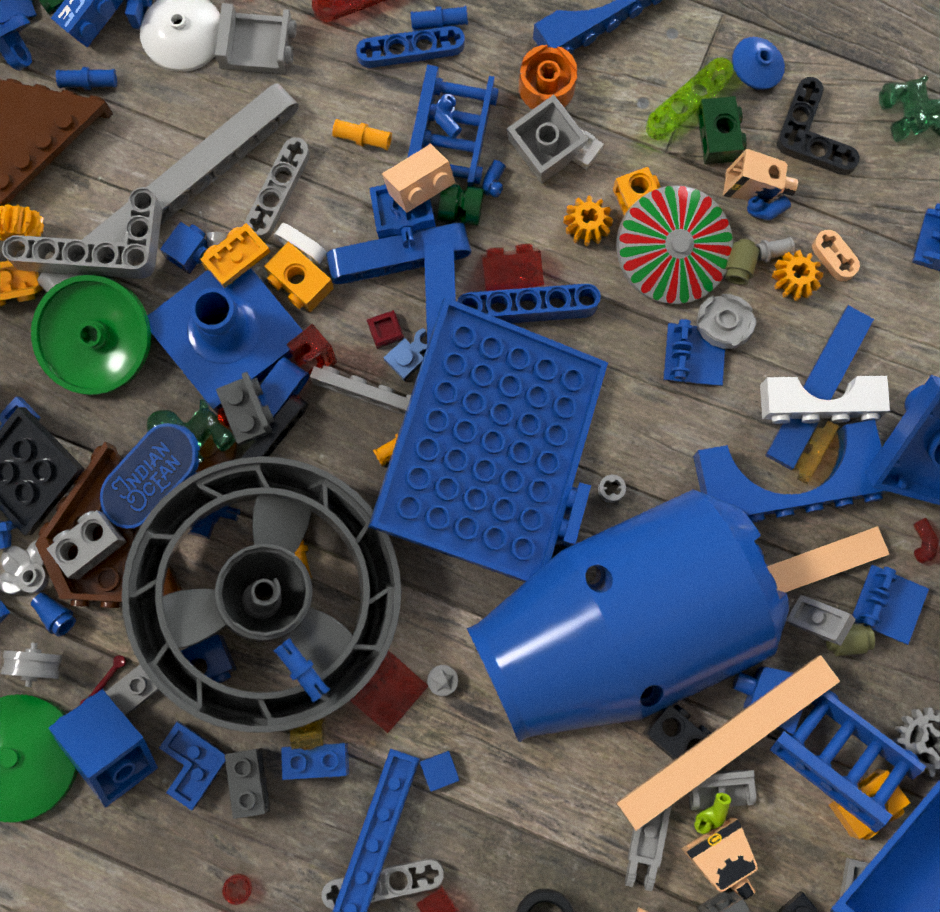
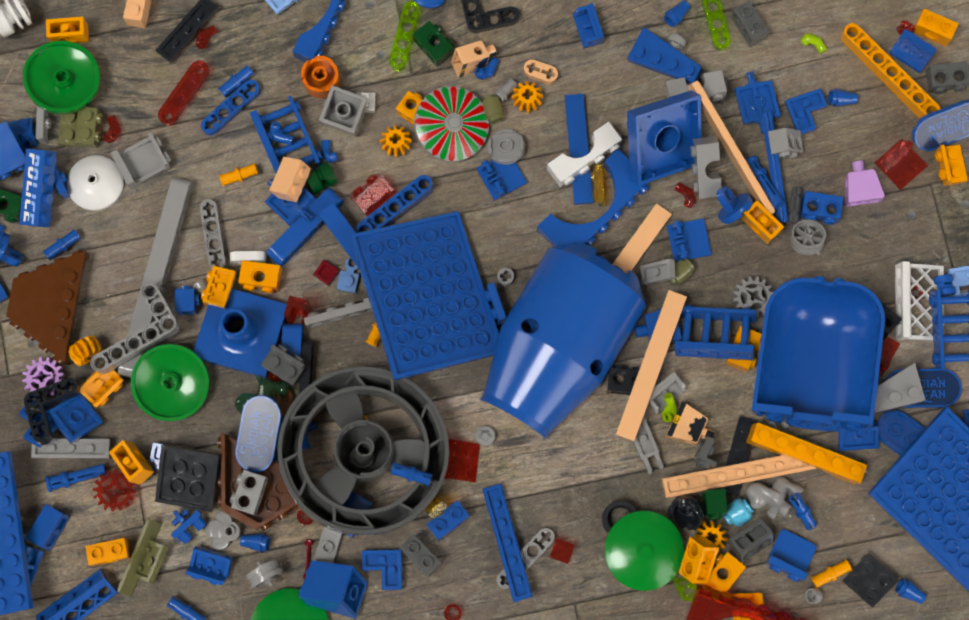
camera: 30 degrees left, 0 degrees up
(439, 771) = (515, 482): blue tile -> none

